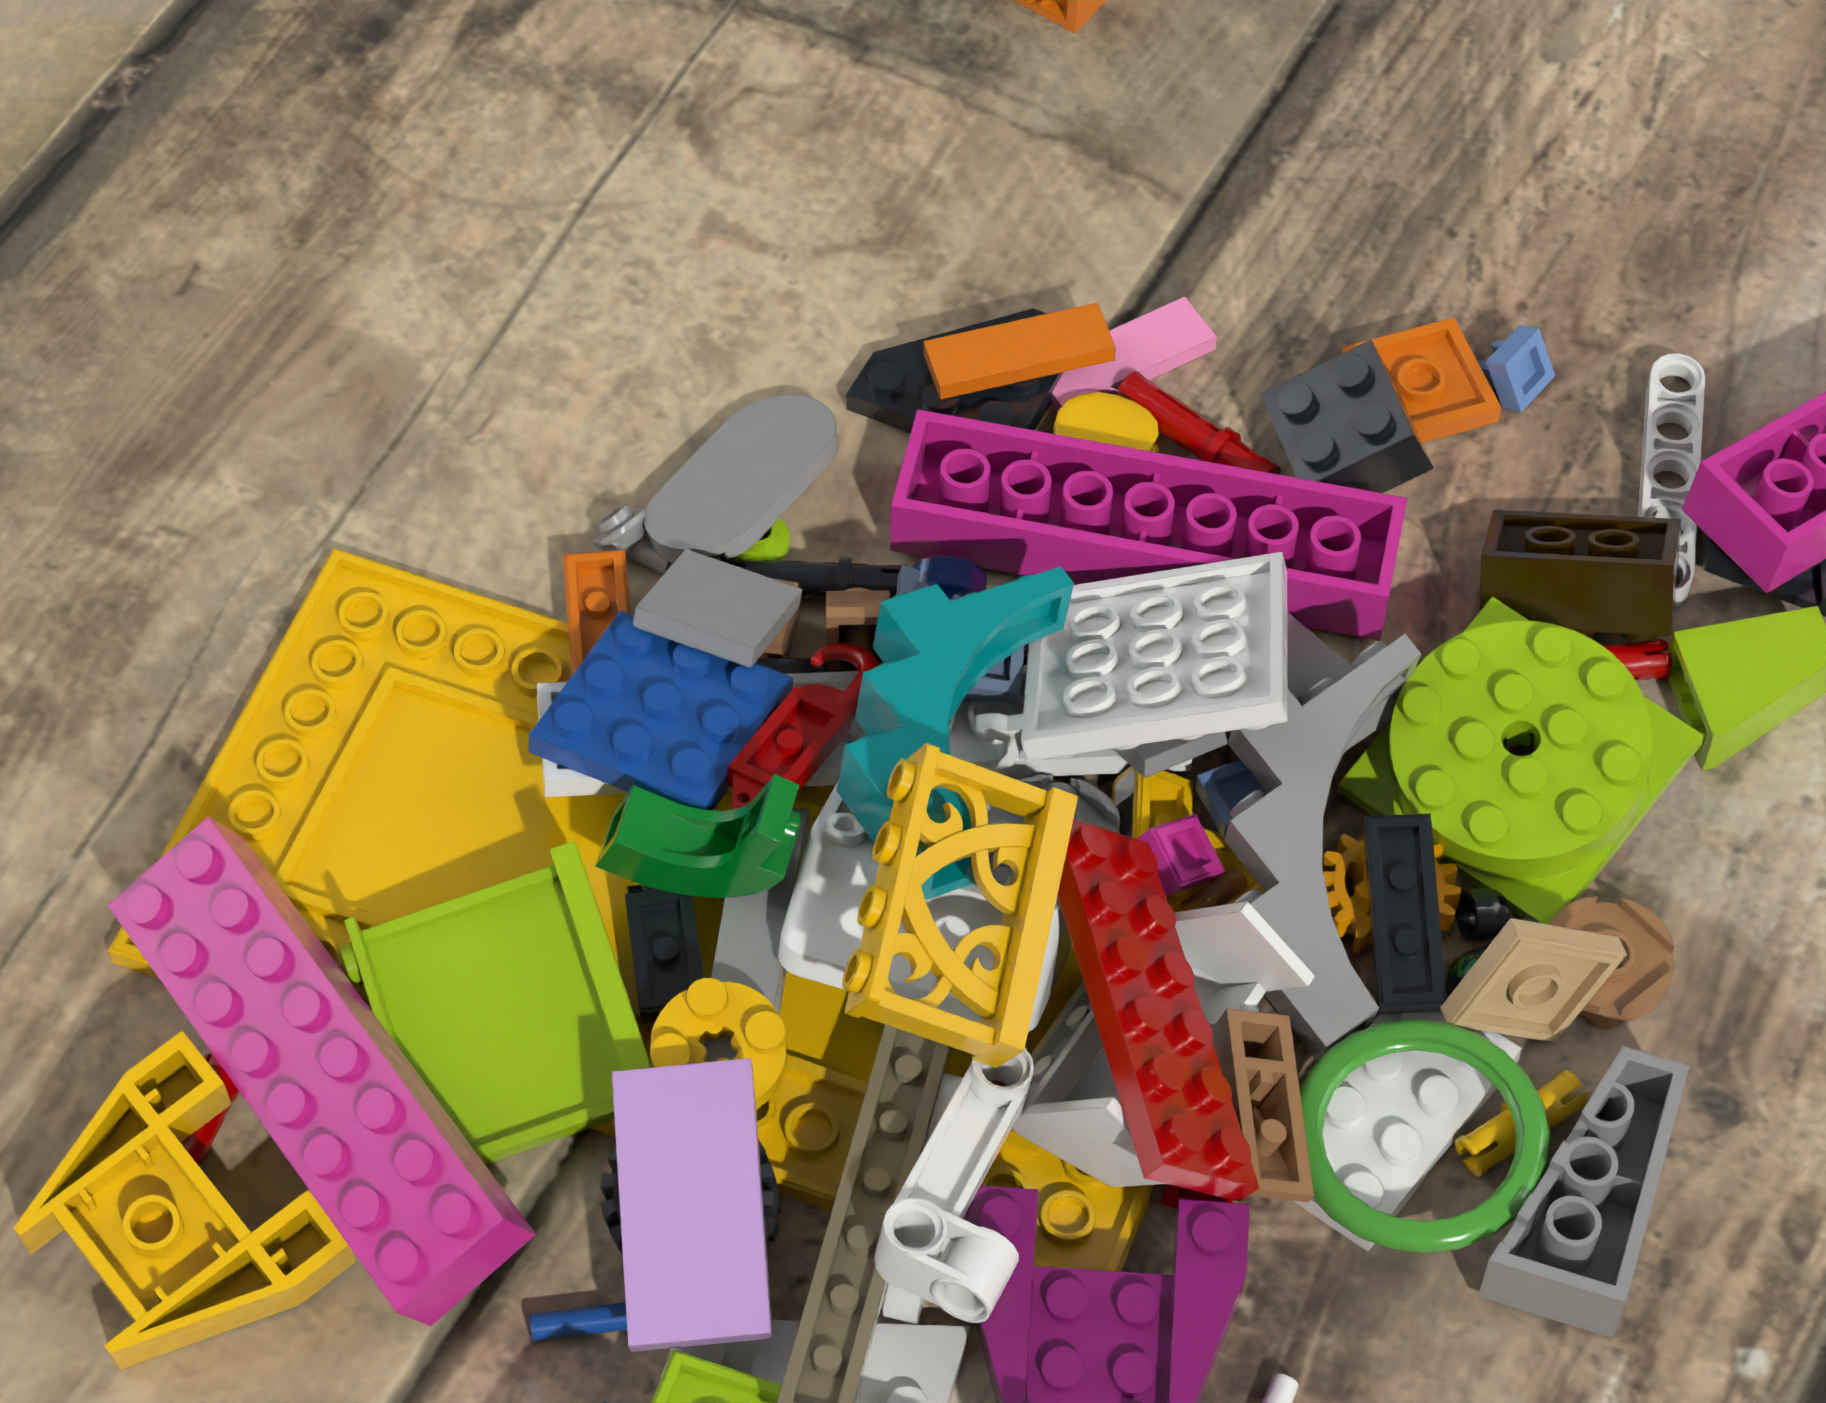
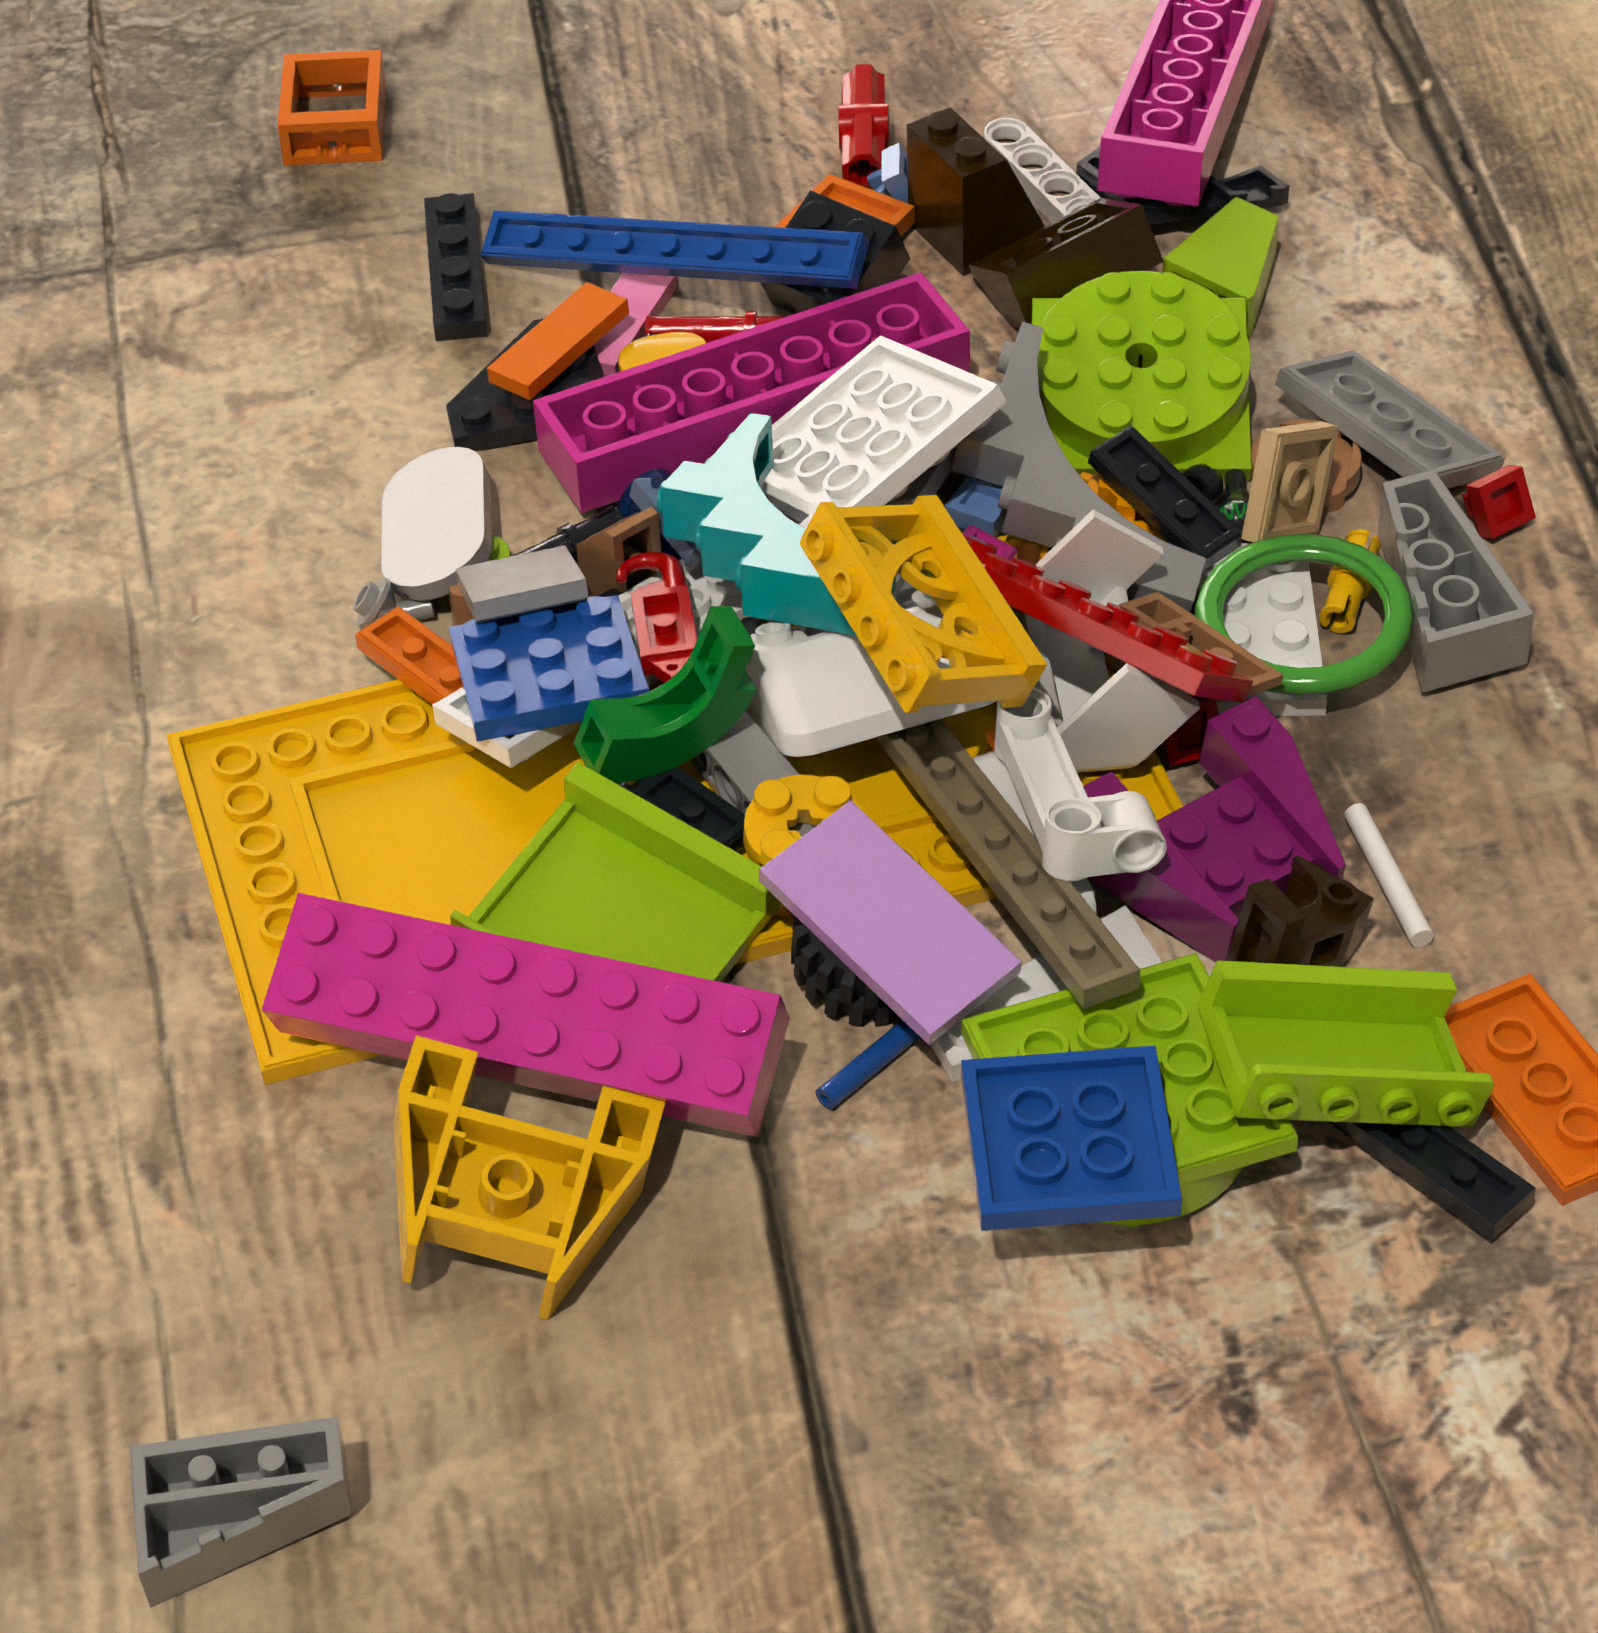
camera: 35 degrees left, 10 degrees down
(1025, 199) = (455, 267): none -> black plate
(1212, 321) = (676, 248): none -> blue tile
(1546, 276) = (862, 123): none -> red piece
(1556, 429) = (963, 191): none -> dark brown slope
(1736, 969) = (1388, 419): none -> light grey tile
(1756, 1139) = (1499, 501): none -> red tile

